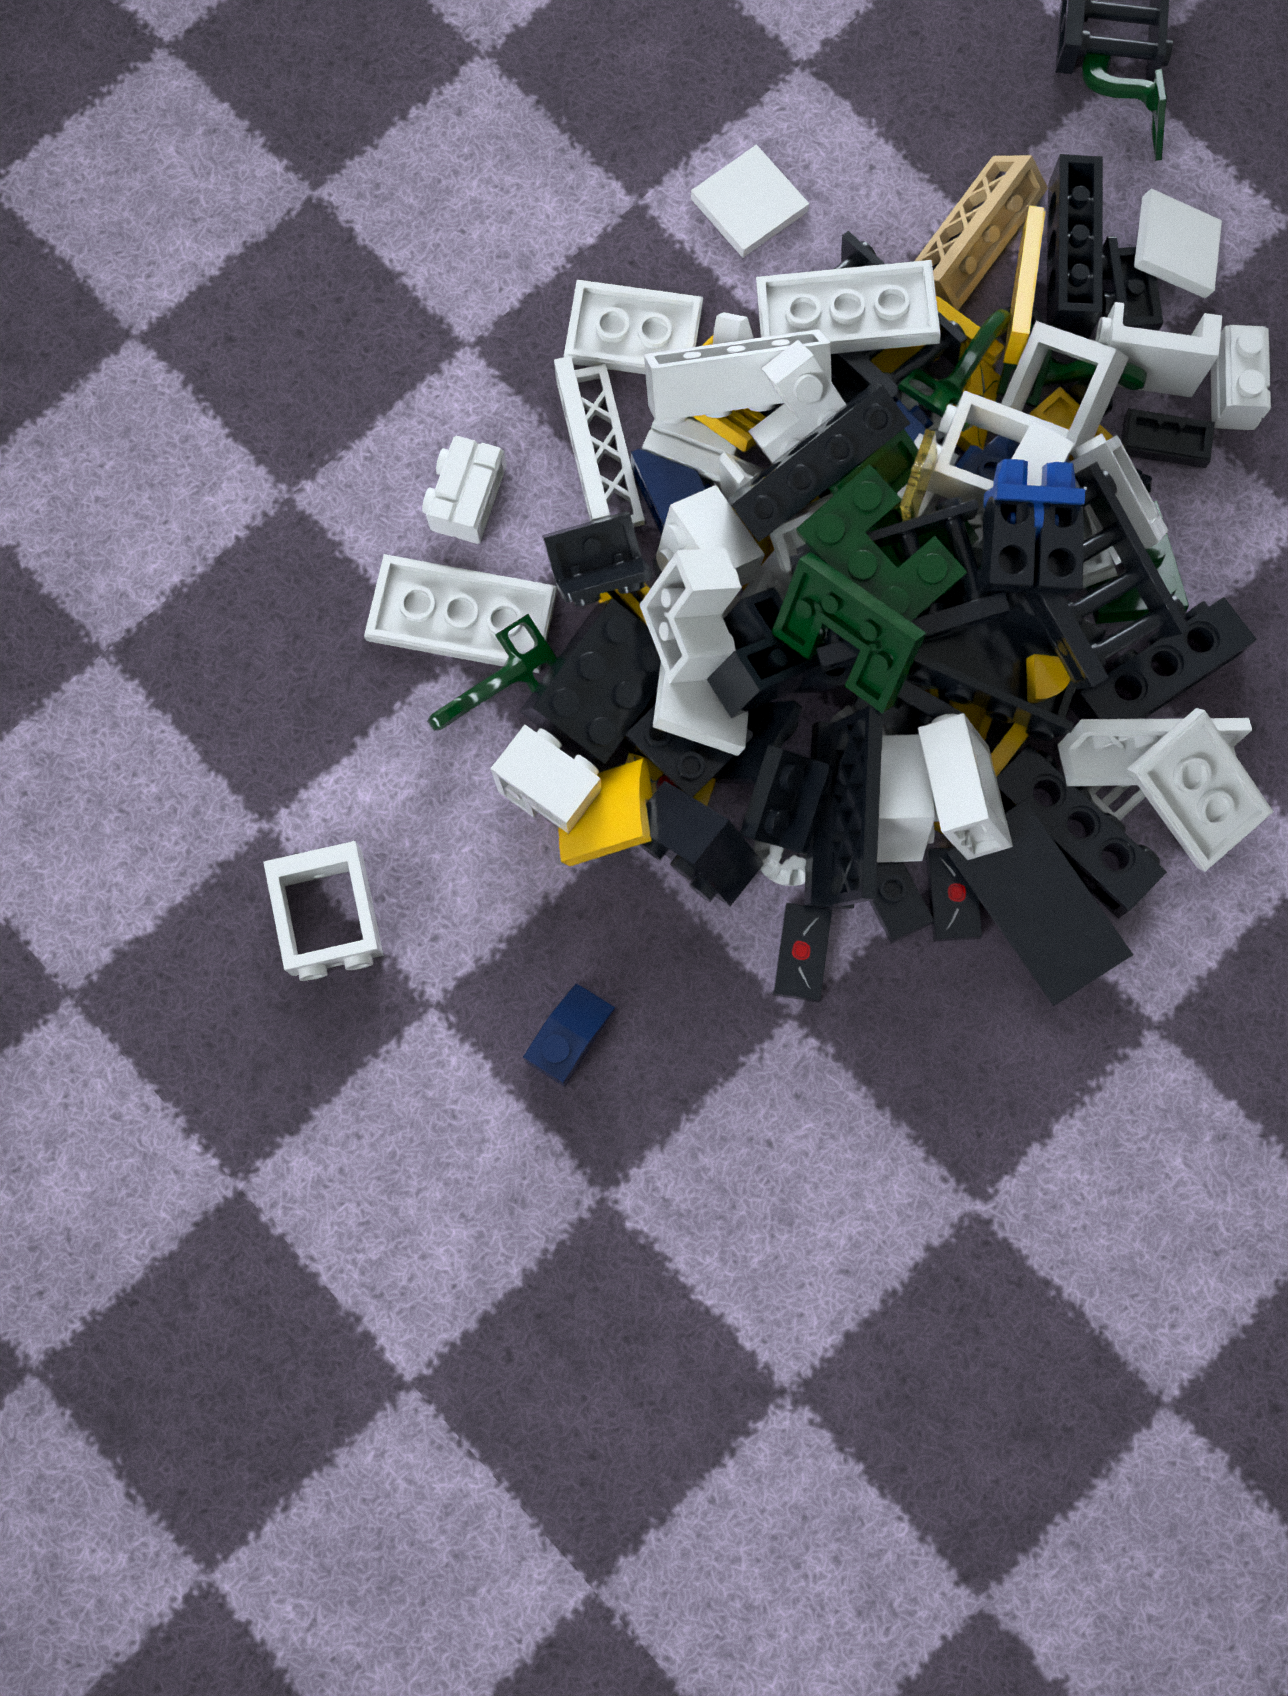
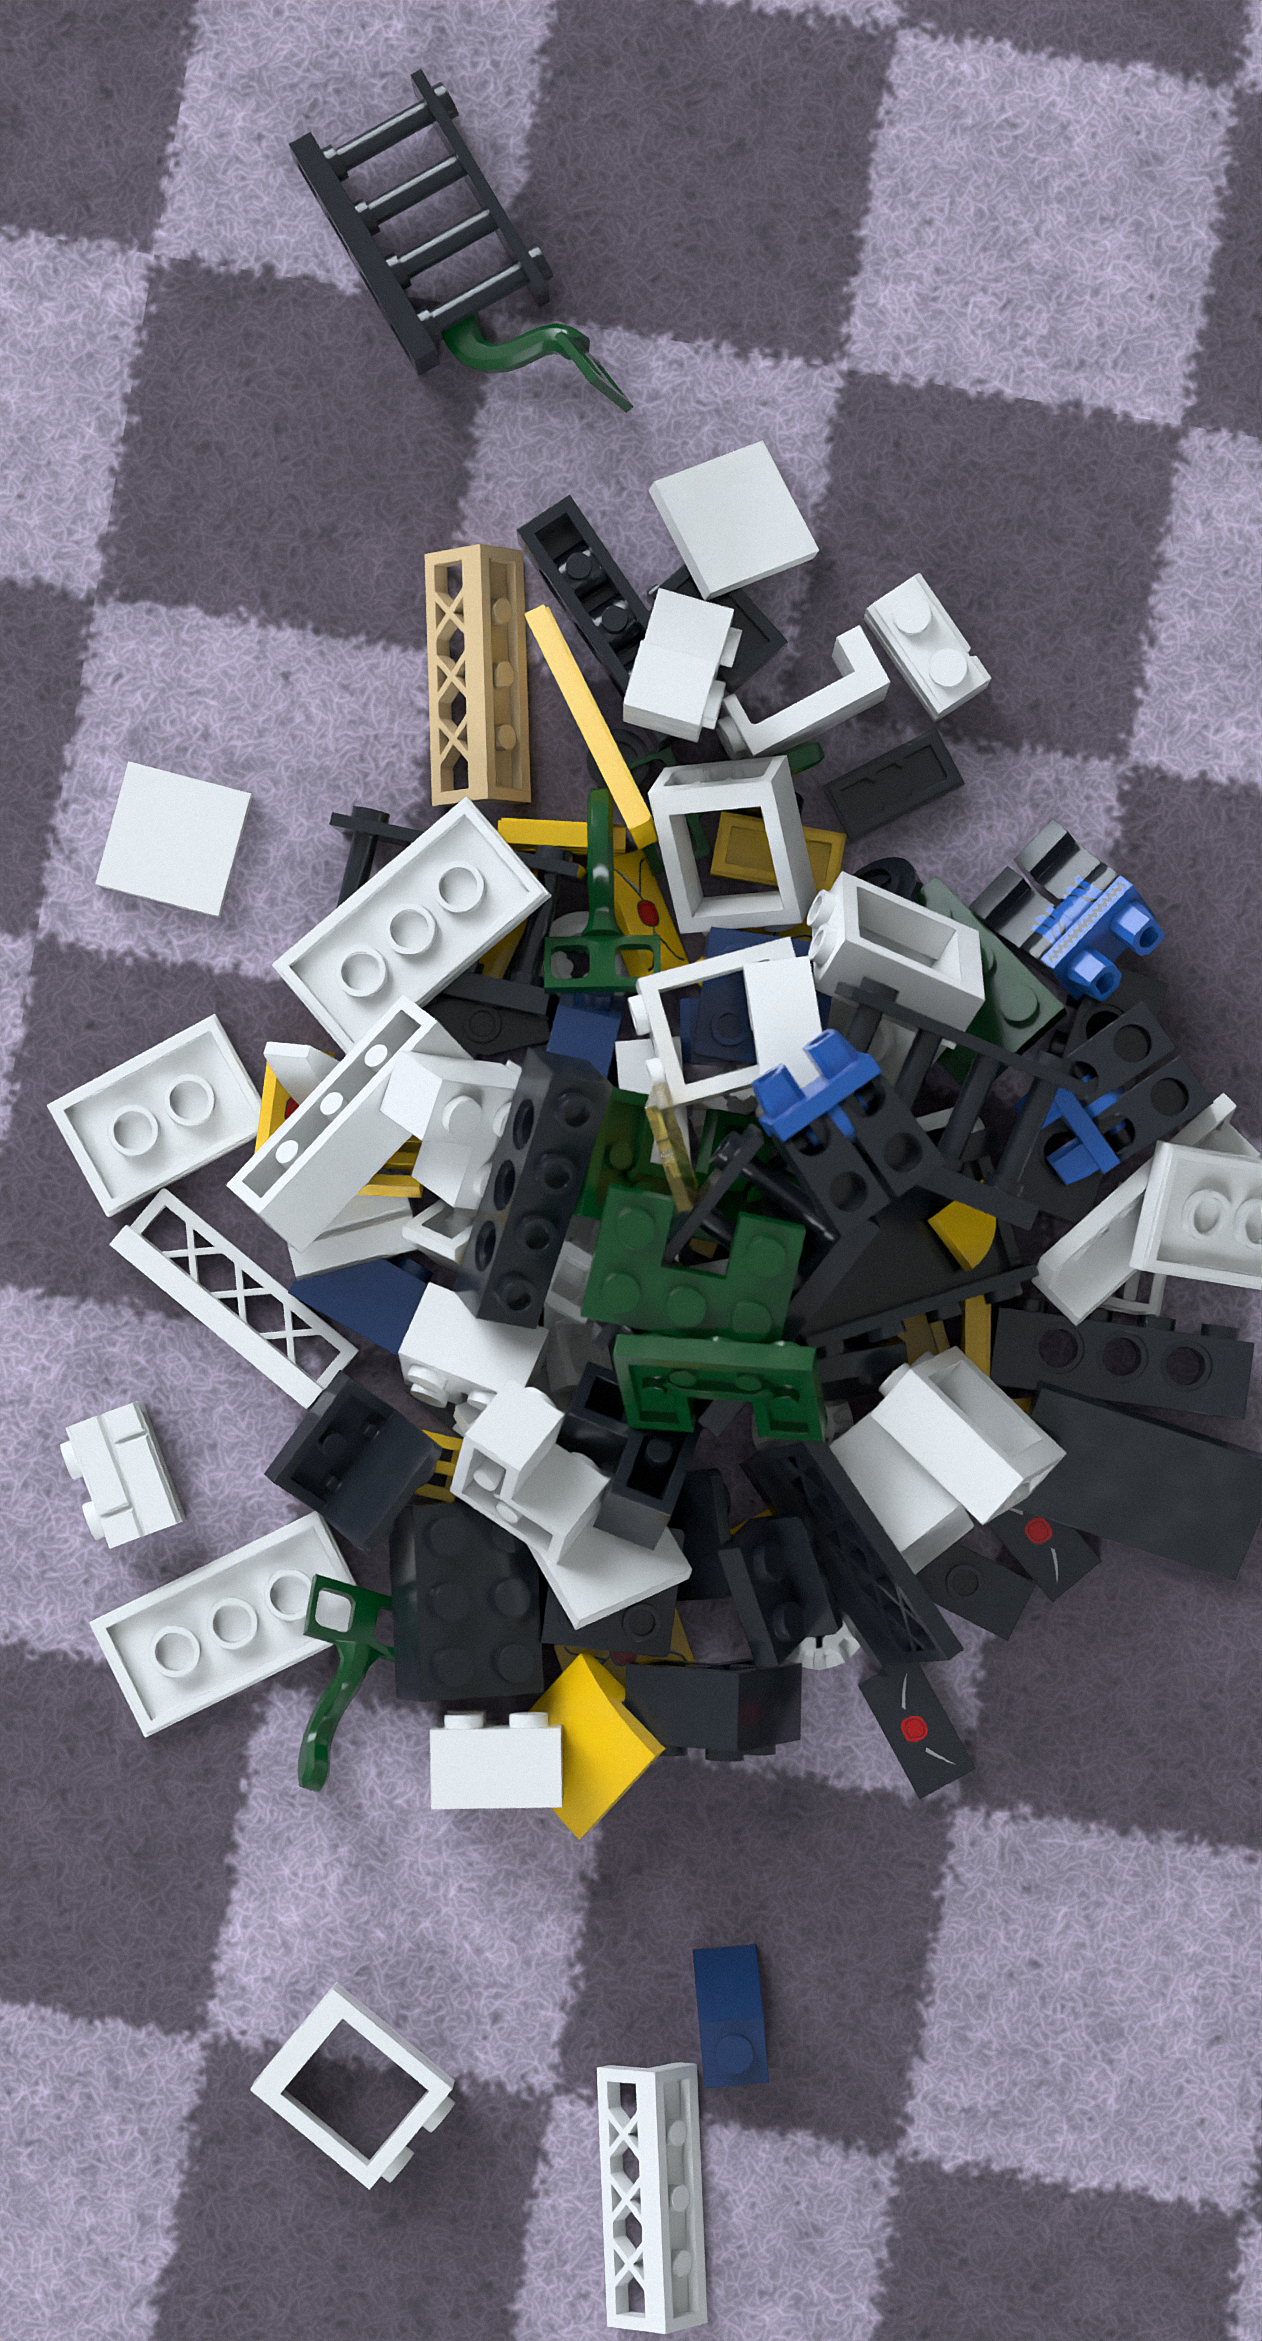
camera: 35 degrees left, 10 degrees up
(448, 1110) = (663, 2198): none -> white fence
(1101, 265) = (678, 665): none -> white brick
(1189, 671) = (1118, 1122): none -> black hips
(1226, 560) = (1087, 931): none -> hips

